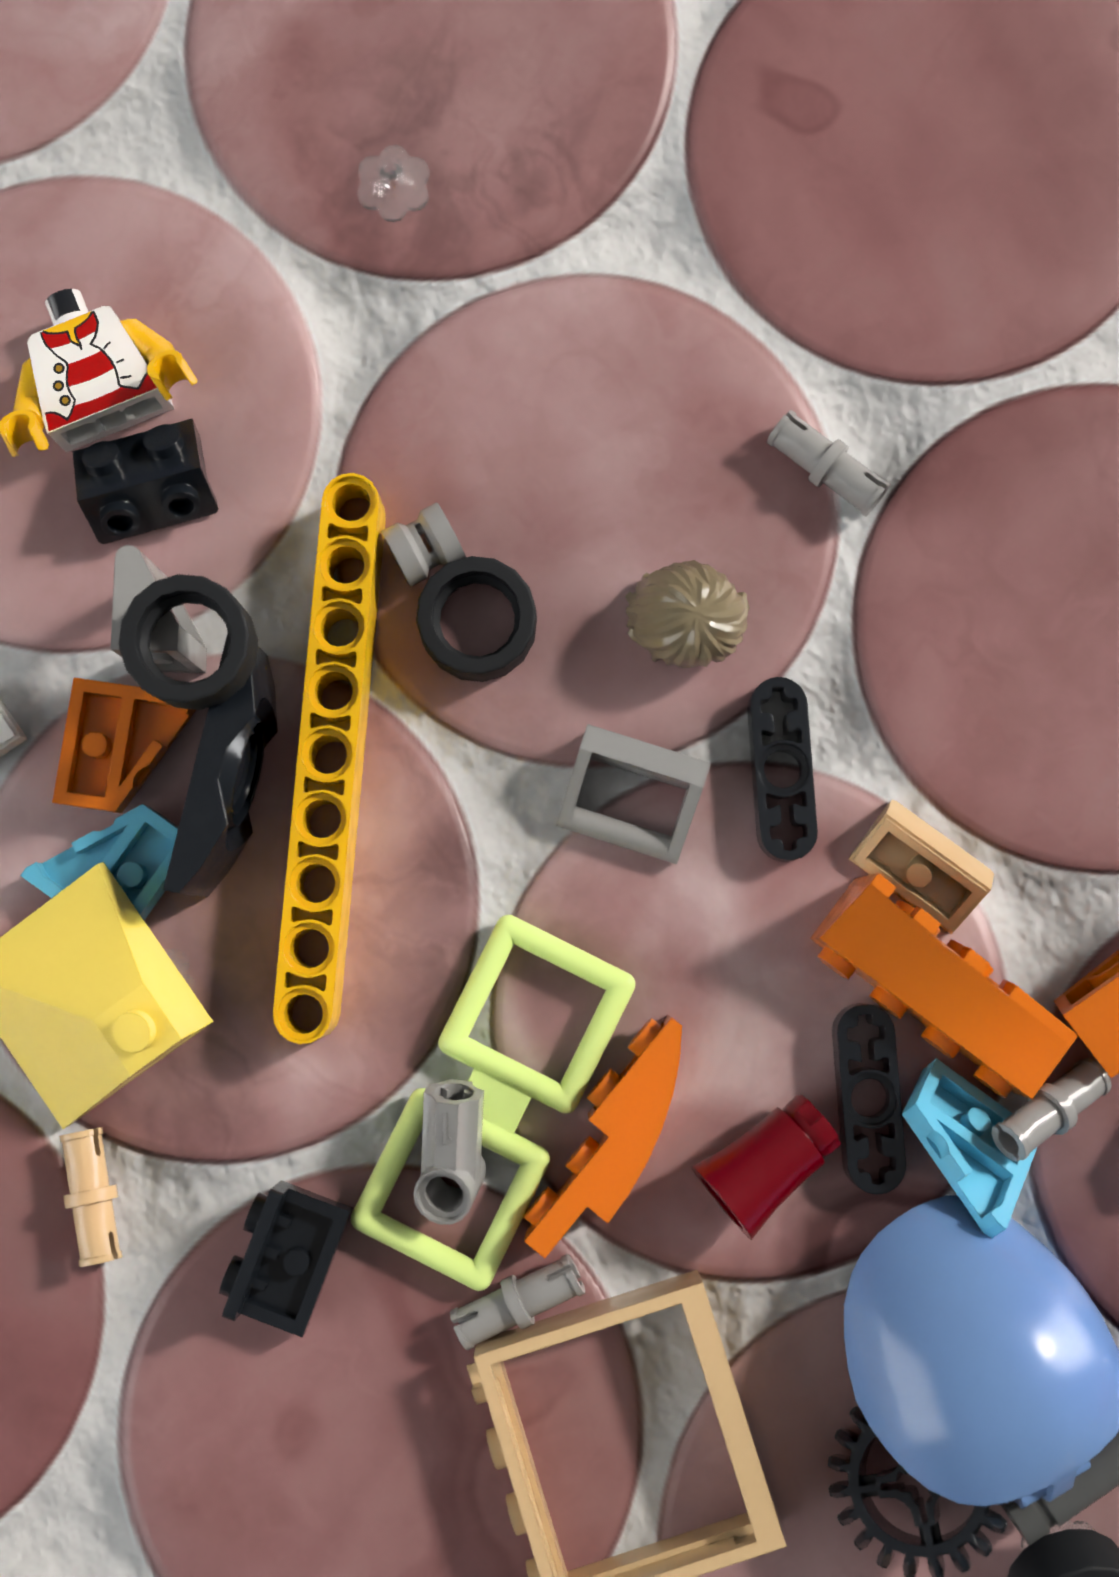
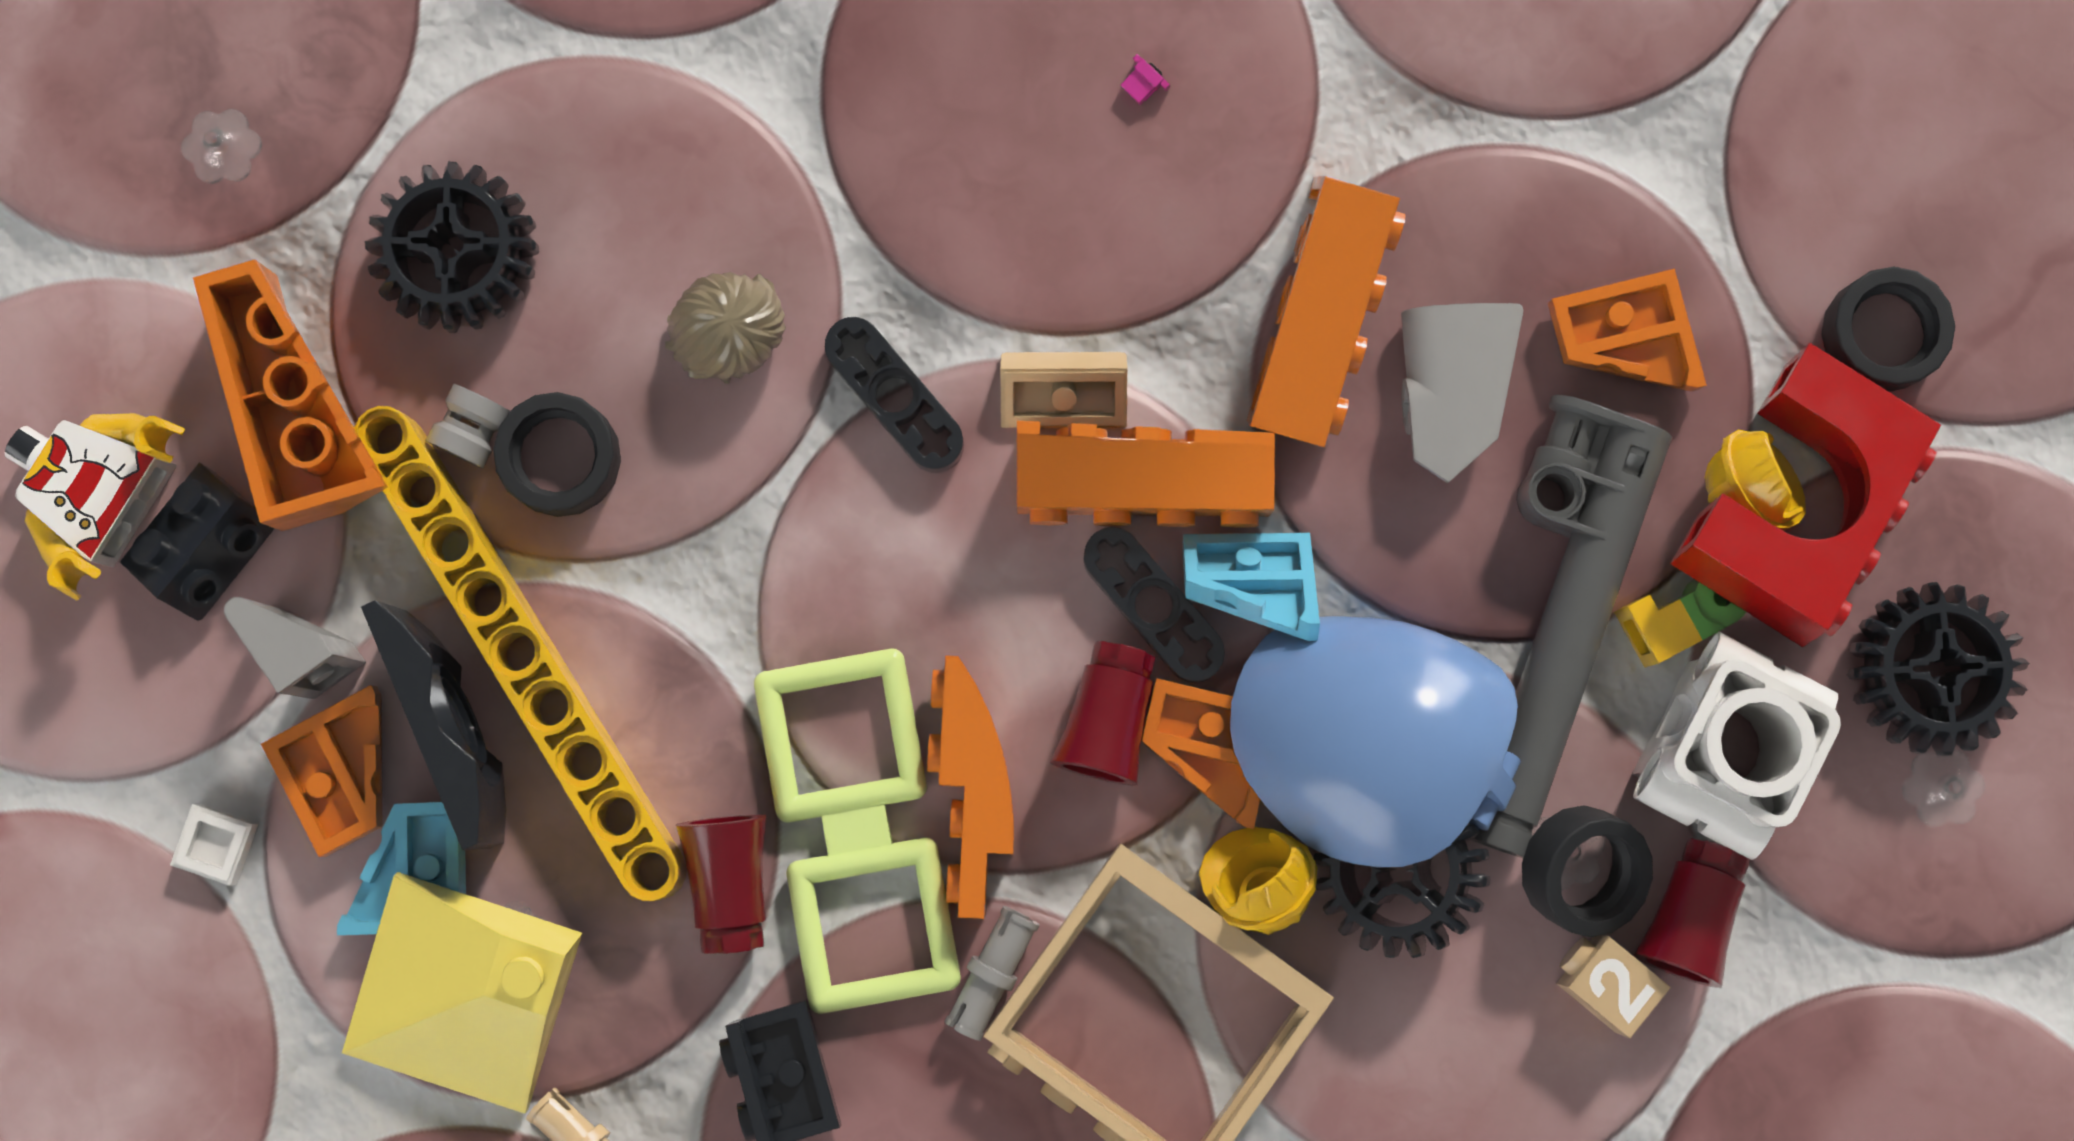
camera: 35 degrees left, 0 degrees up
(157, 601) = (287, 627): black tyre -> none
(283, 436) = (287, 421): none -> orange wedge
(359, 1064) = (726, 880): none -> dark red plant
(450, 1150) = (845, 888): light grey piece -> none
(480, 359) = (448, 197): none -> black gear
(643, 760) = (774, 470): light grey tile -> none
(794, 1394) = (1259, 879): none -> yellow piece
(825, 1236) = (1193, 736): none -> orange wing
(828, 463) = (750, 119): light grey pin -> none
(1051, 1110) = (1298, 506): light grey pin -> none

